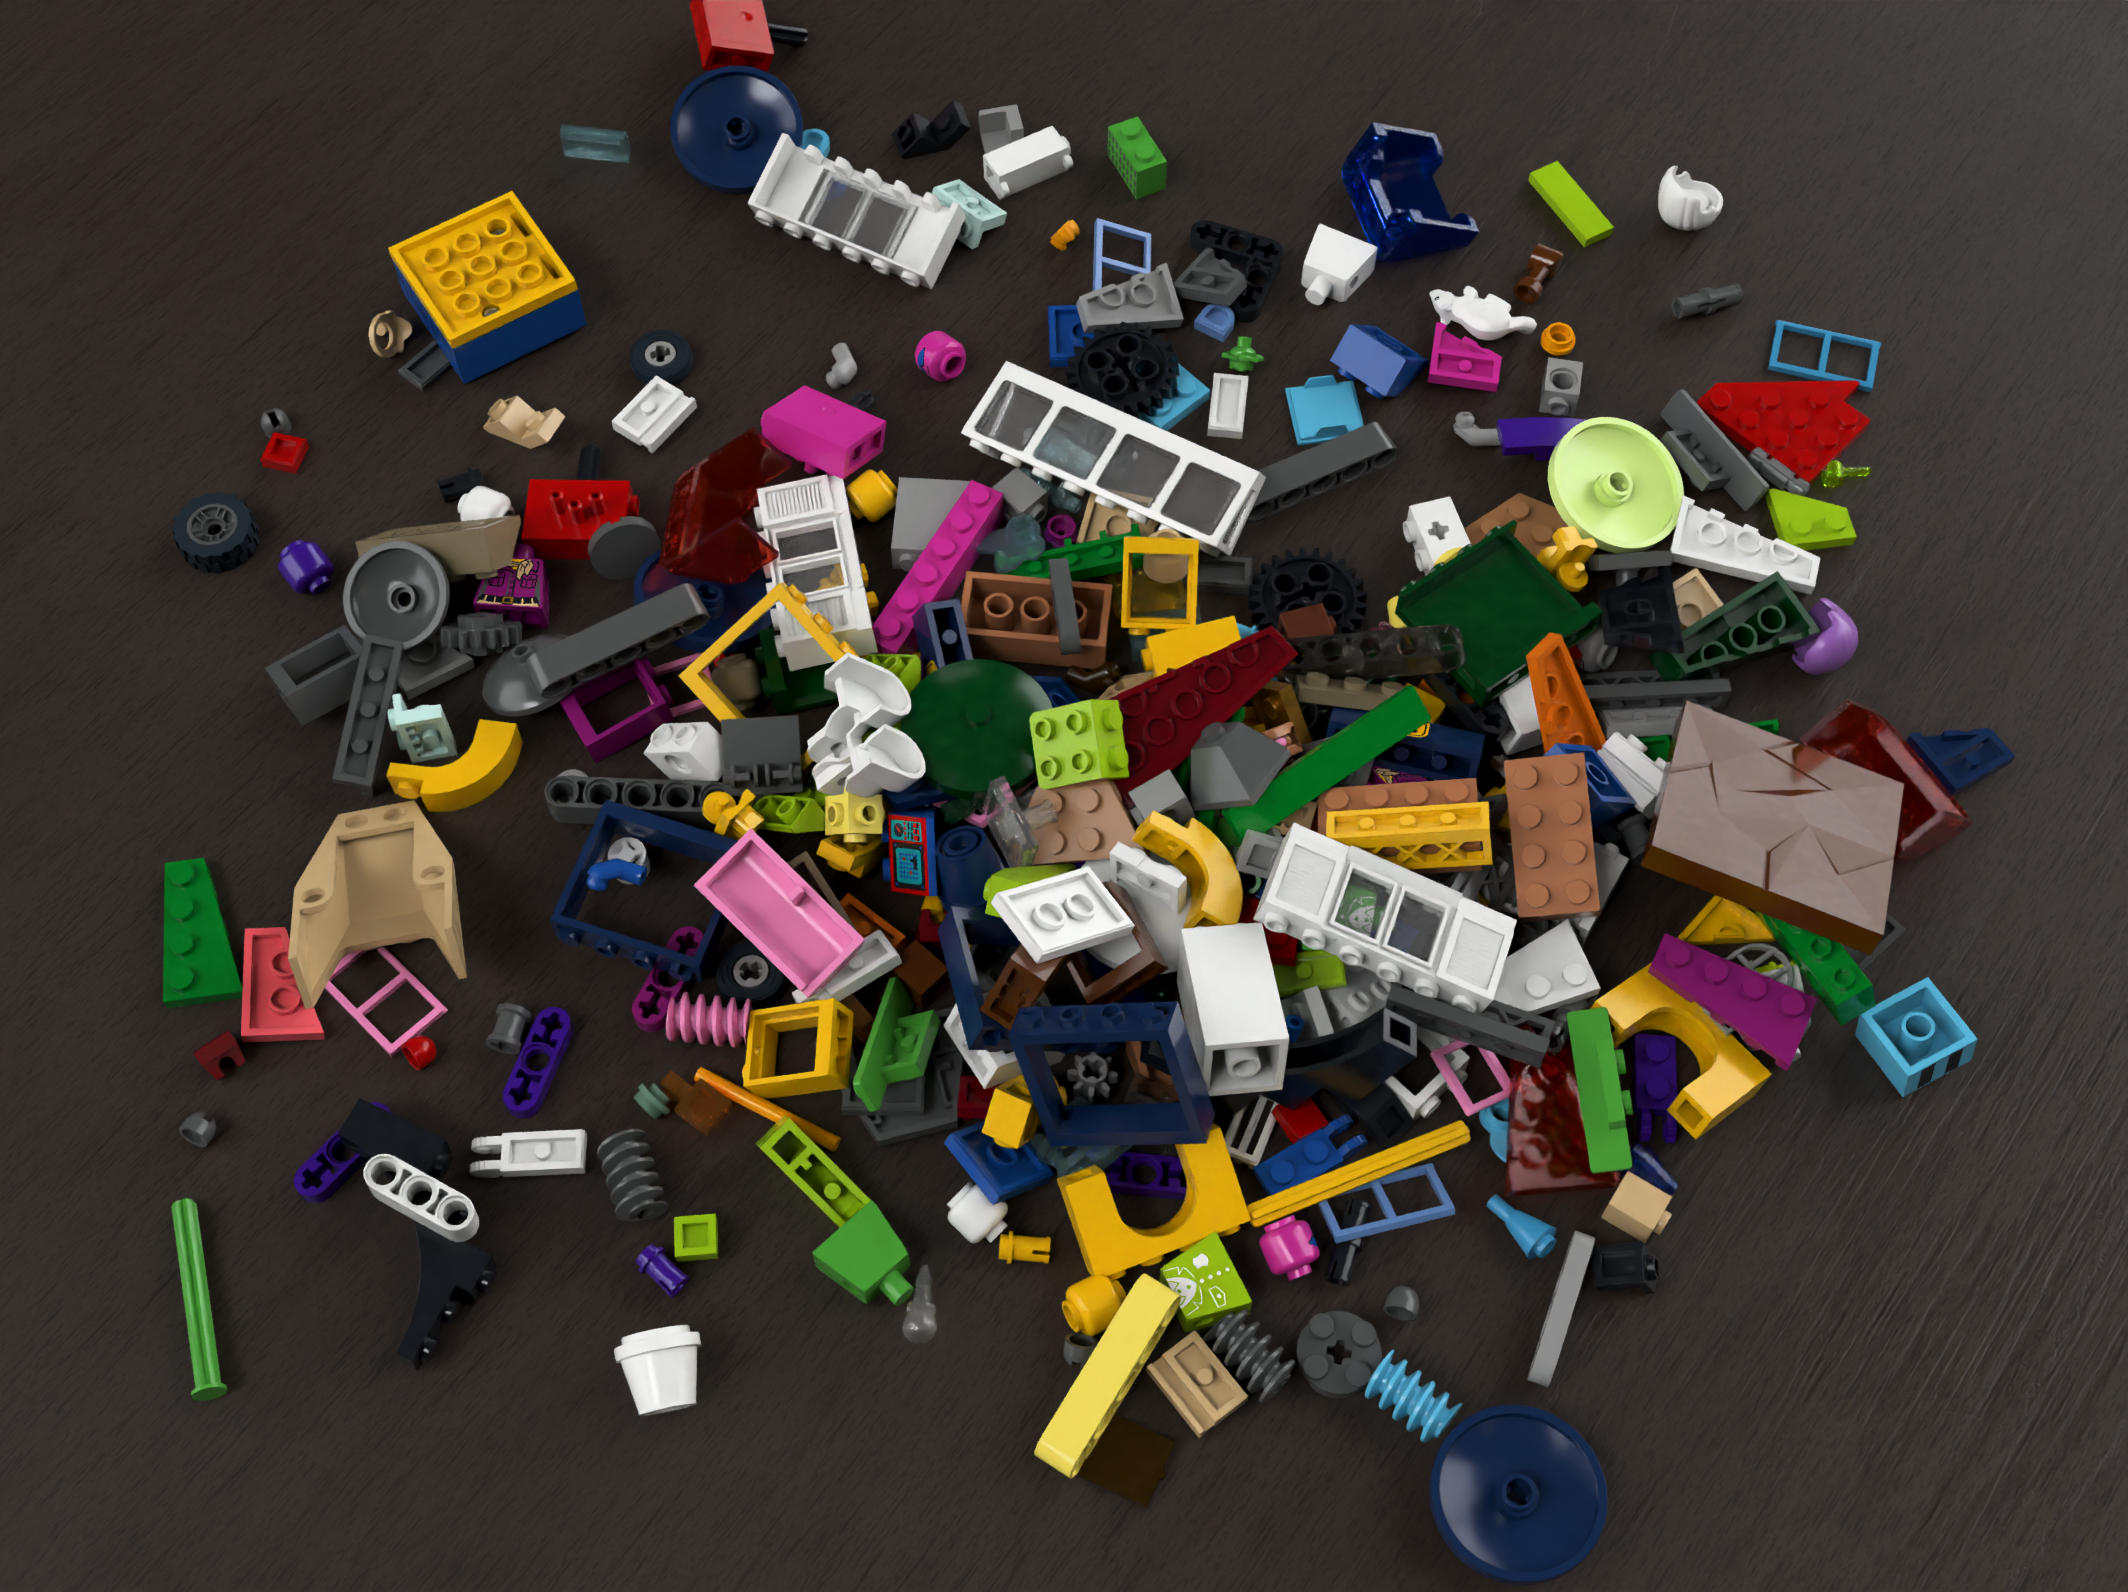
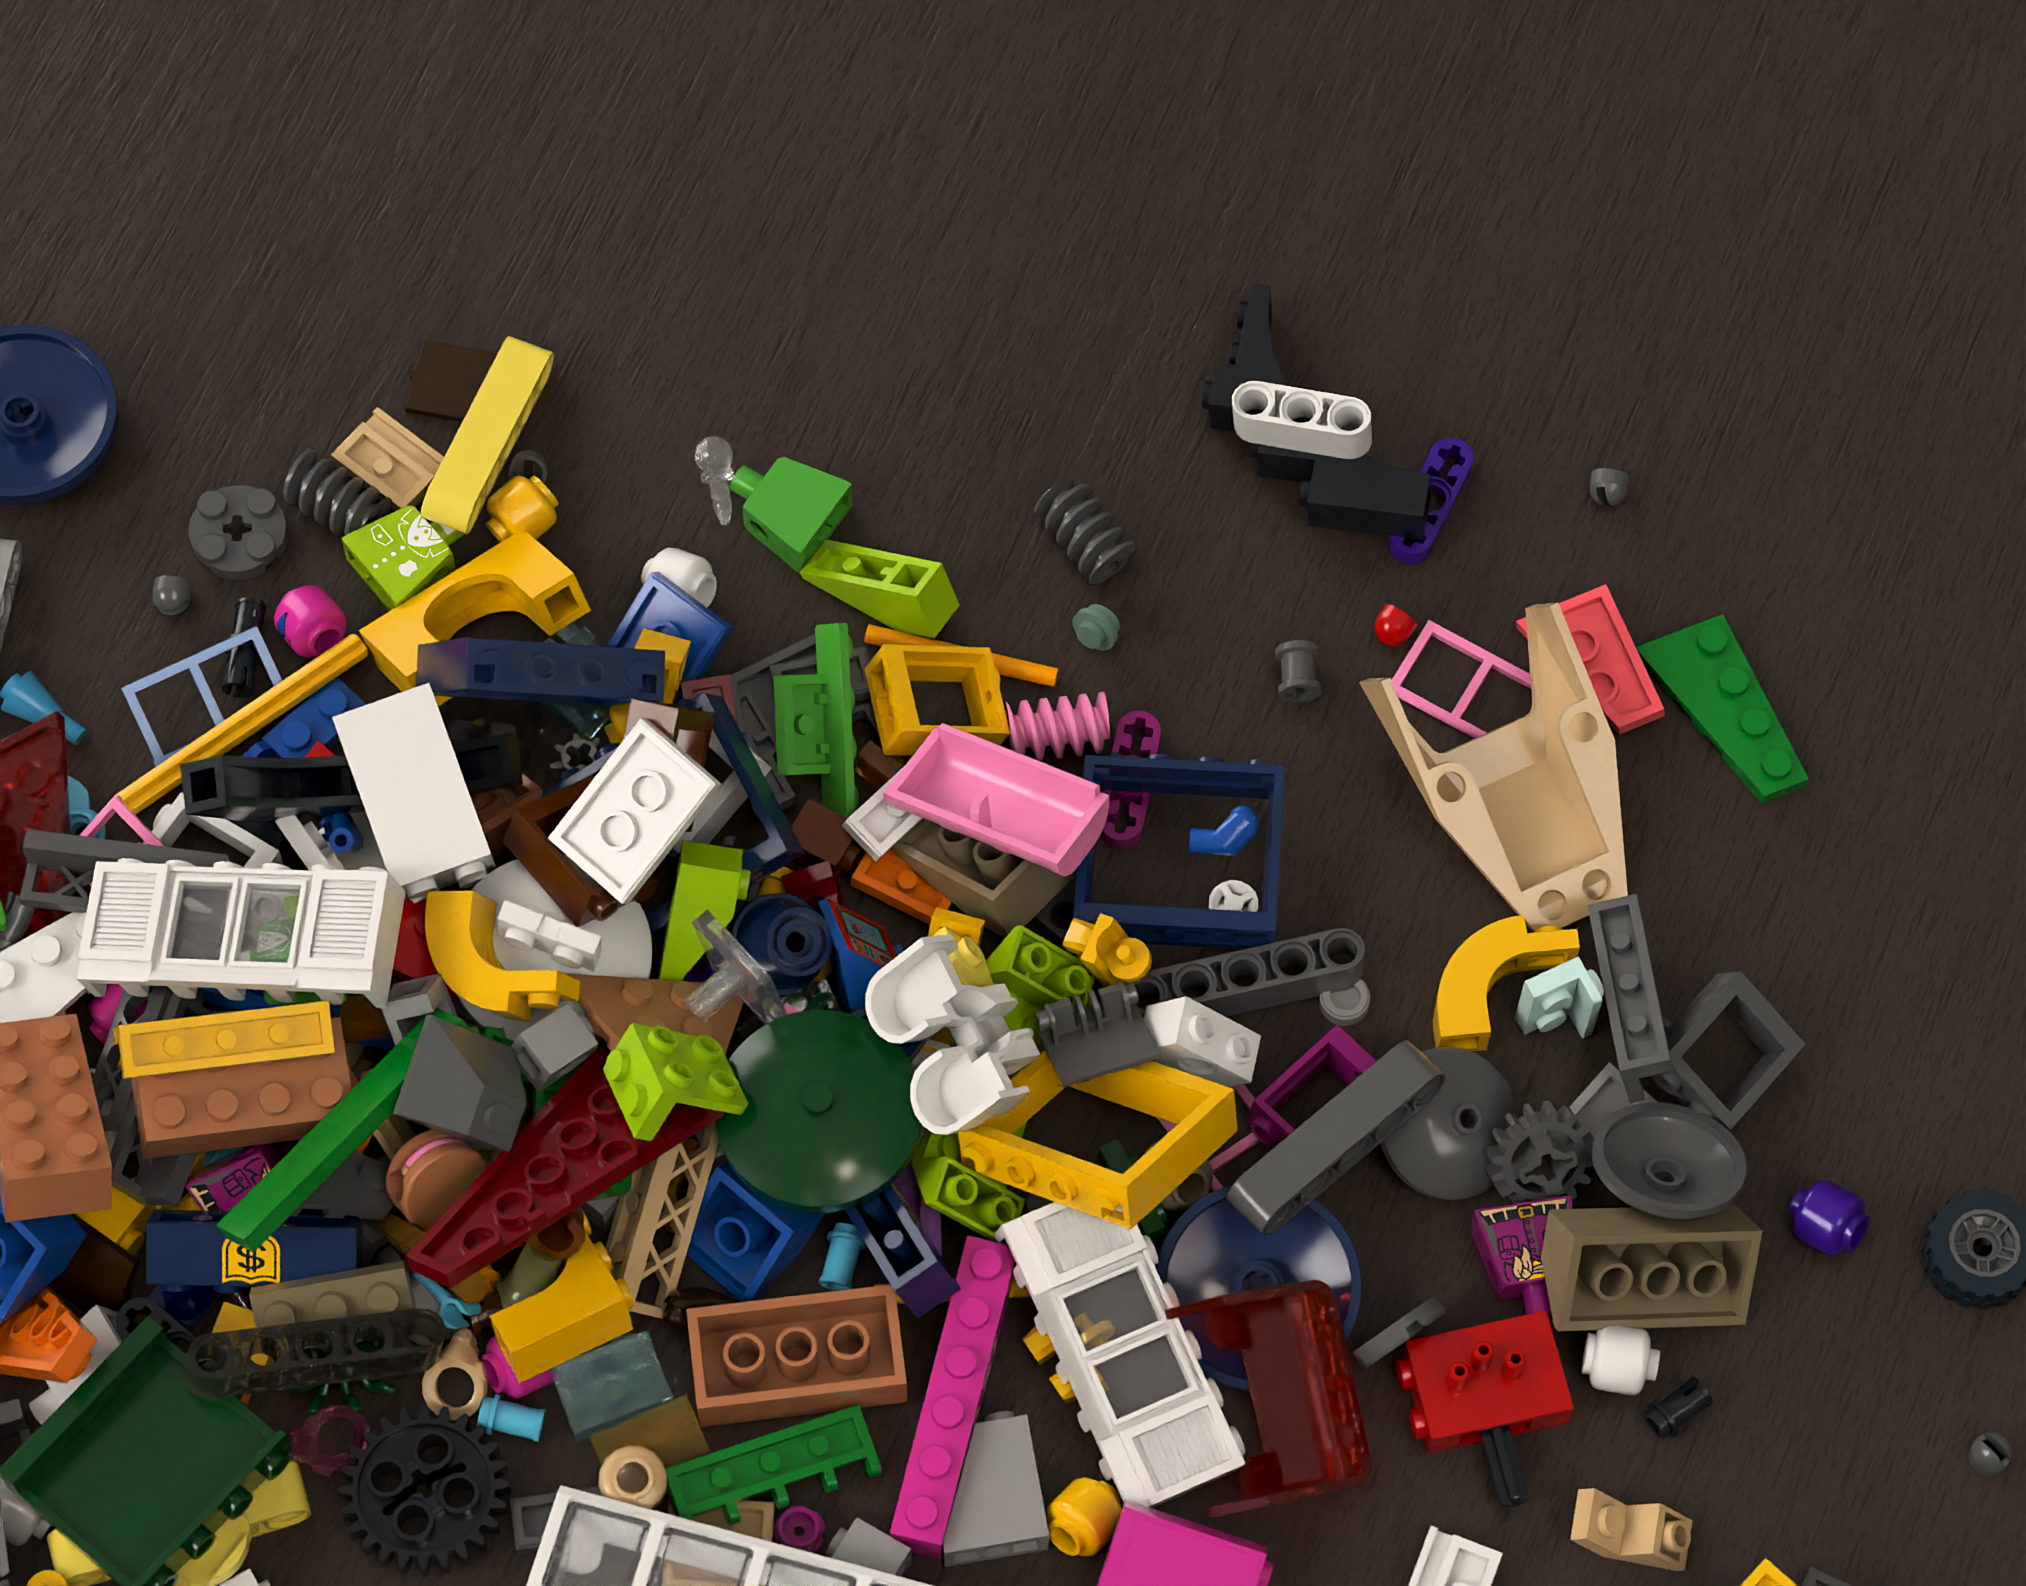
camera: 165 degrees right, 5 degrees up
(197, 1302) = (1522, 315): bright green axle -> none
(218, 1048) = (1629, 571): dark red tile -> none
(284, 452) = (1954, 1408): red tile -> none
(516, 1083) = (1261, 631): dark purple beam -> none
(531, 1154) = (1215, 540): white hinge -> none
(661, 1270) = (1020, 451): dark purple pin -> none
(661, 1368) = (982, 339): white piece -> none
(696, 1237) = (993, 491): lime plate -> none
(698, 1105) = (1041, 633): clear orange plate -> none
(1014, 544) = (858, 1465): clear light blue plate -> none
(1024, 1248) = (616, 561): yellow pin -> none
(1064, 606) = (752, 1337): dark grey beam -> none
(1159, 545) = (632, 1434): yellow window -> none
(1306, 622) = (412, 1402): copper brick -> none
(1411, 1398) = (145, 491): medium azure piece -> none

